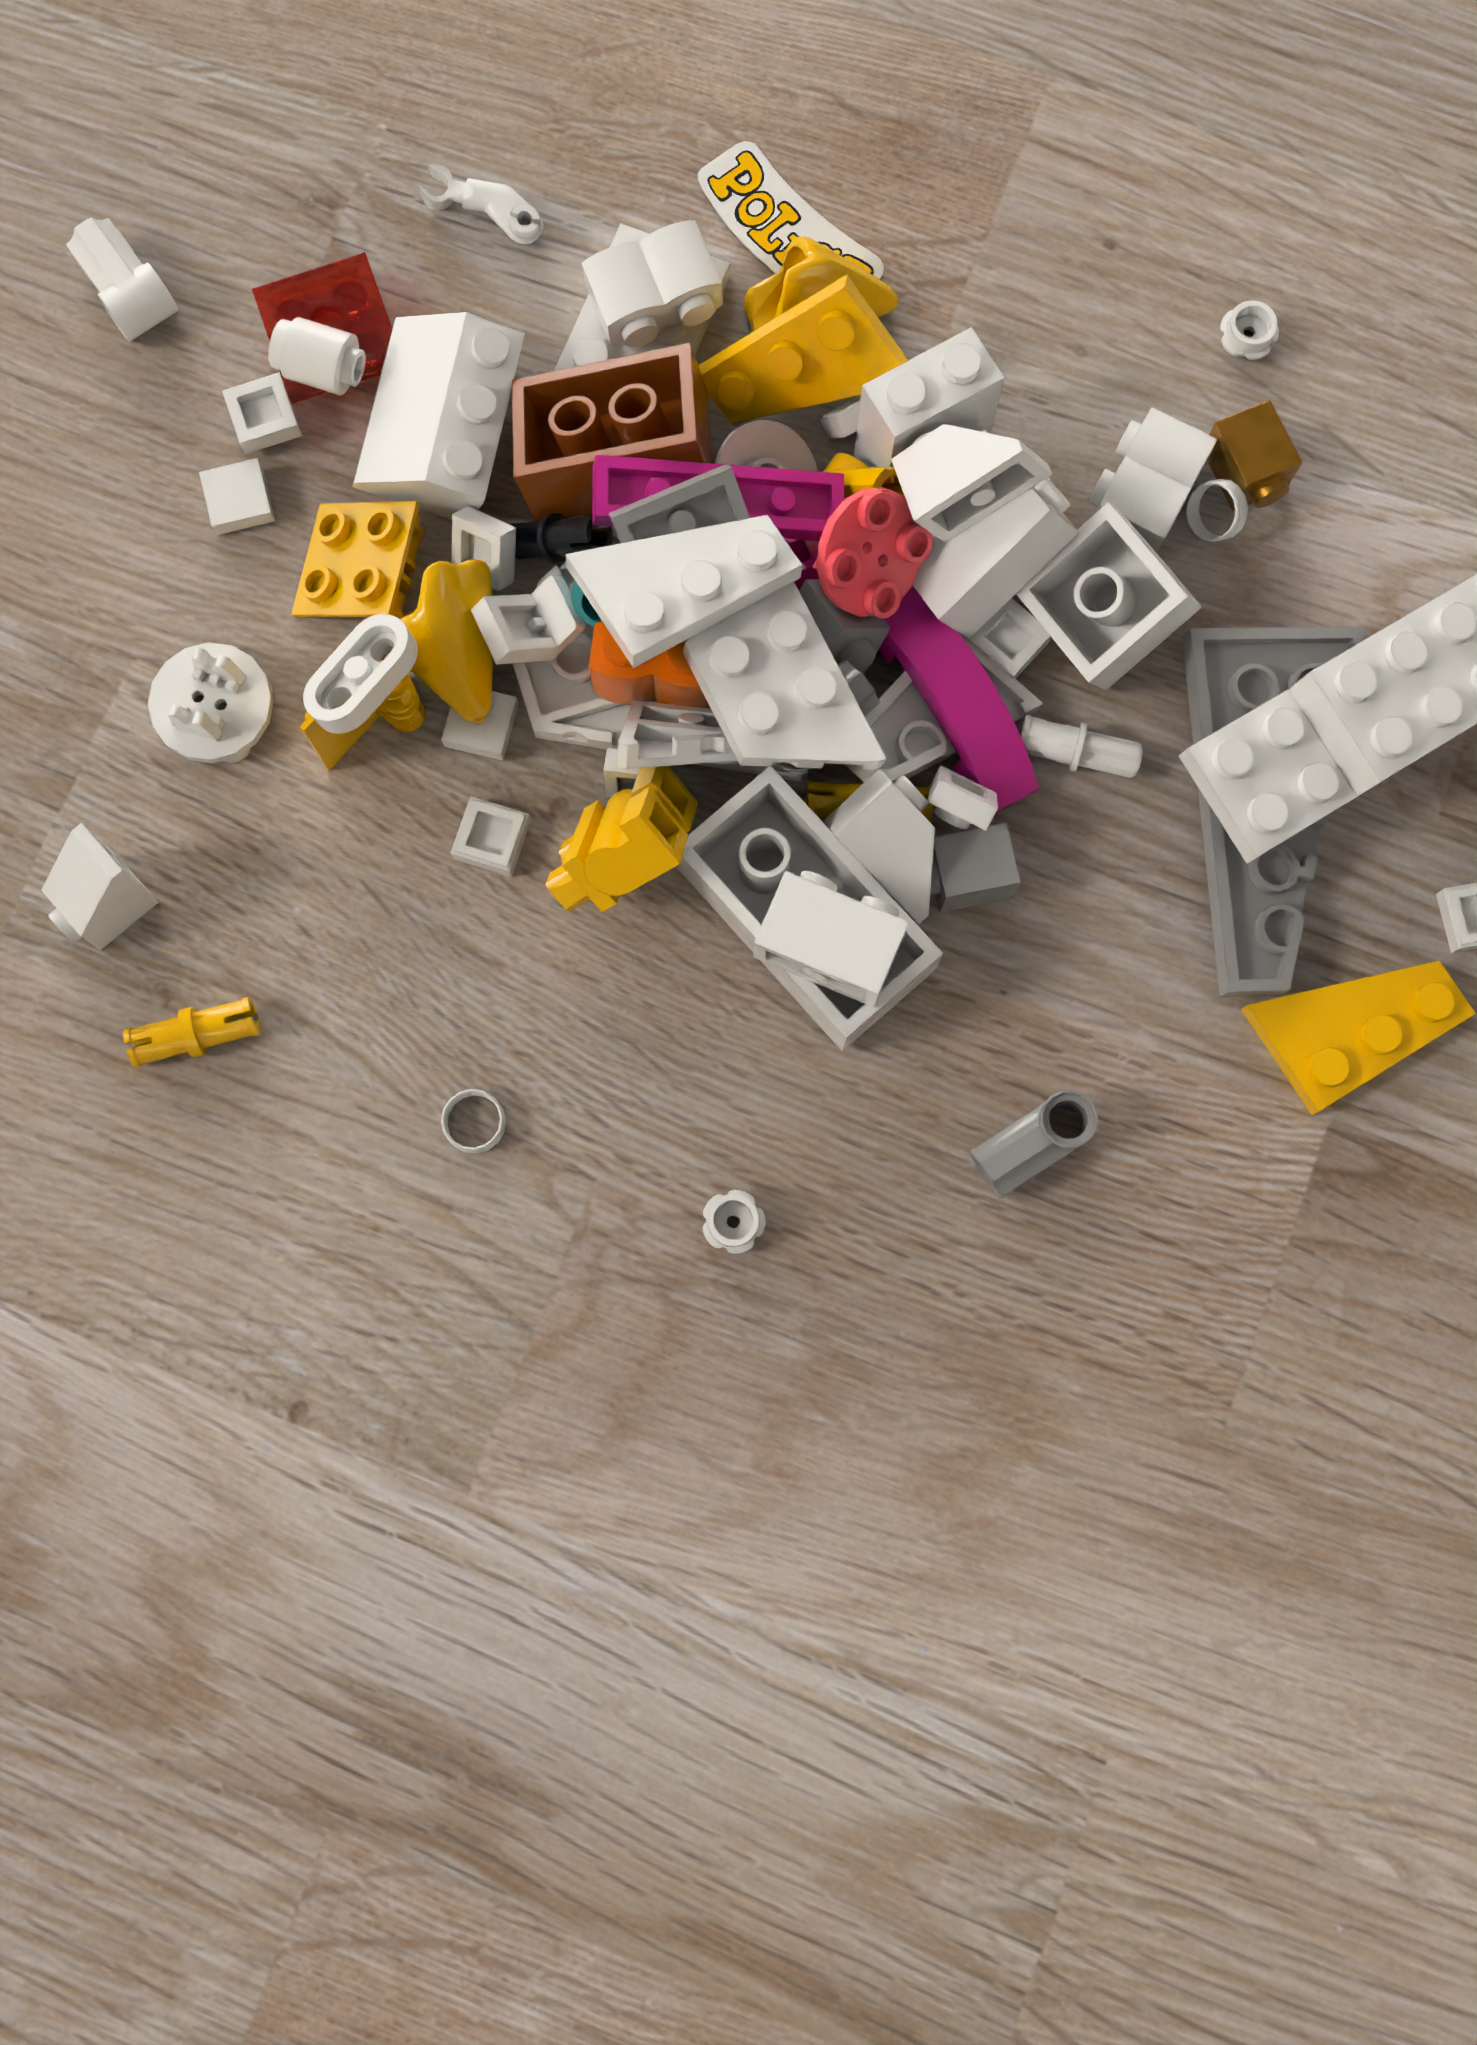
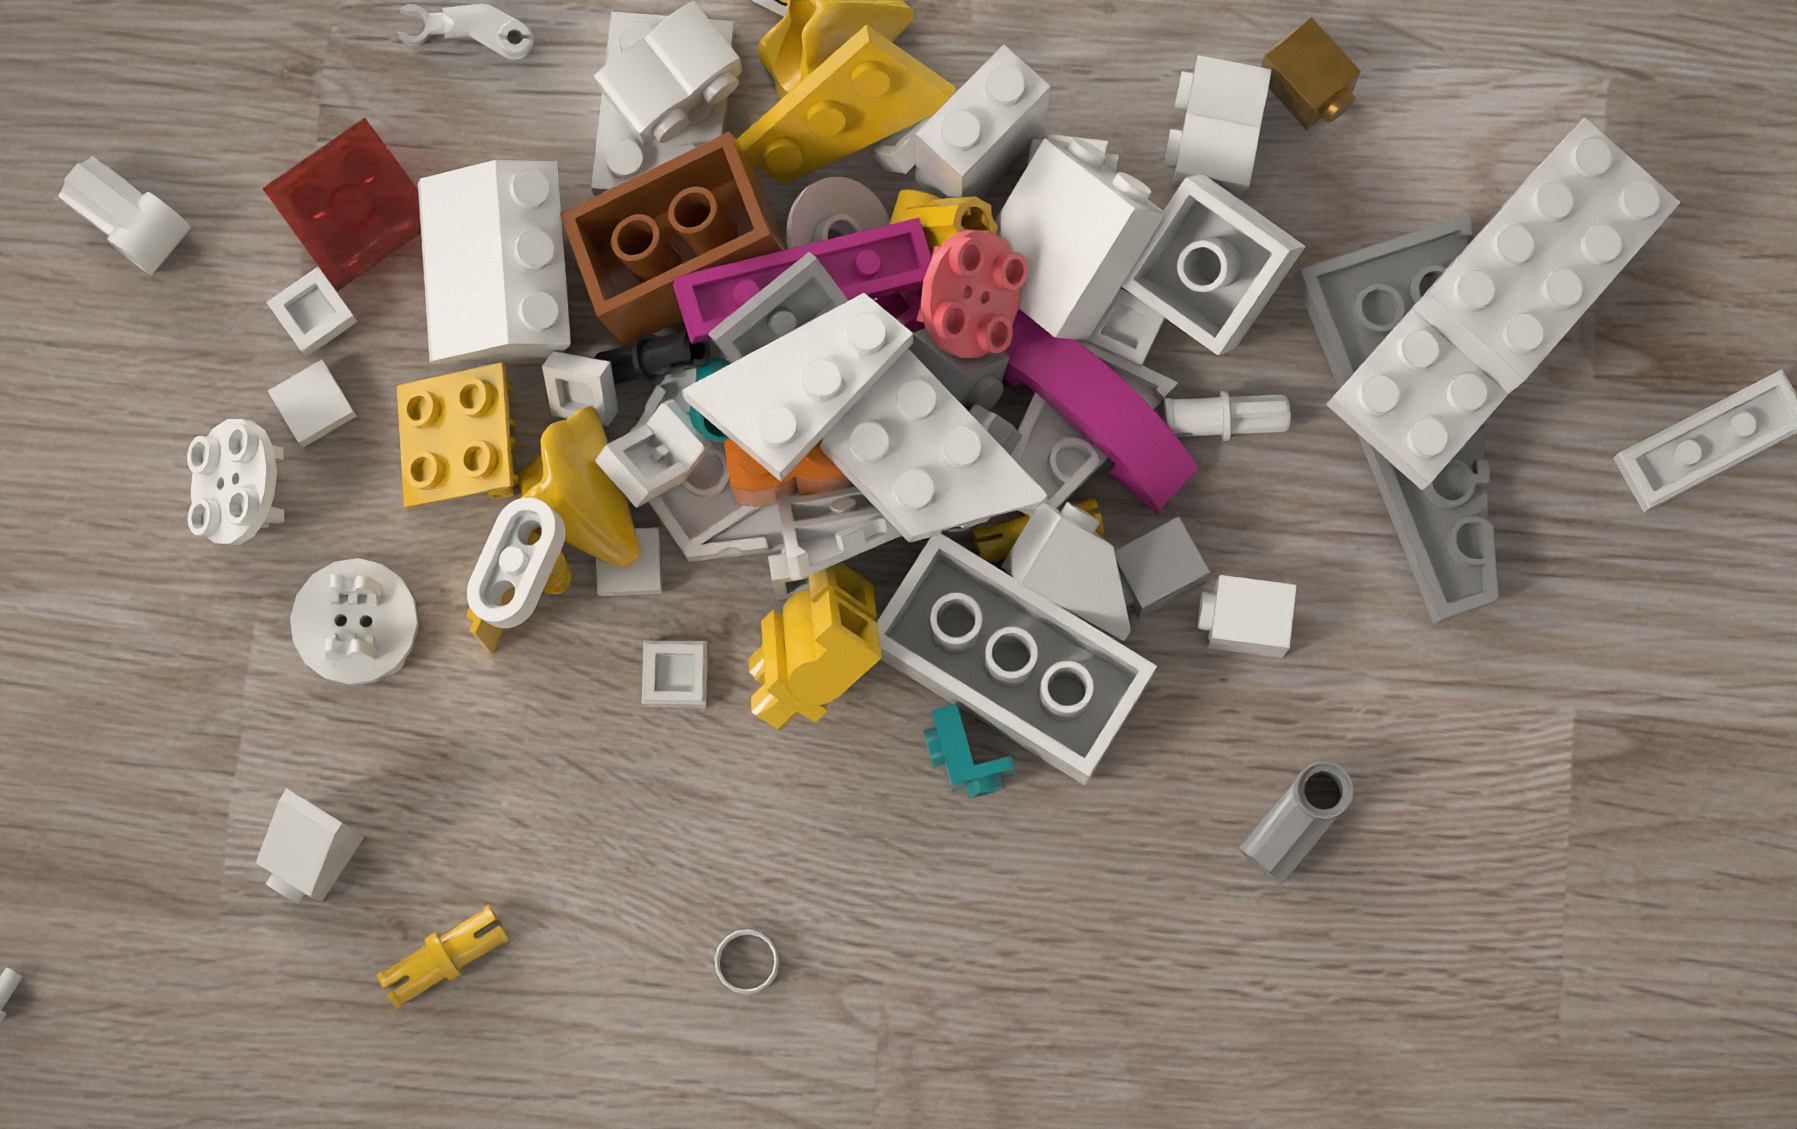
camera: 15 degrees left, 0 degrees up
(139, 543) = (233, 482): none -> white plate
(316, 355) = (356, 243): white brick -> none
(723, 975) = (949, 747): none -> teal bracket
(737, 1204) = (1032, 966): white plate -> none
(830, 936) = (1047, 684): white brick -> none
(961, 800) = (1129, 507): white plate -> none
(964, 476) = (1038, 198): white slope -> none
(1045, 937) = (1248, 616): none -> white brick
(1240, 505) = (1311, 127): white axle -> none
(1356, 1029) = (1573, 617): yellow wing -> none

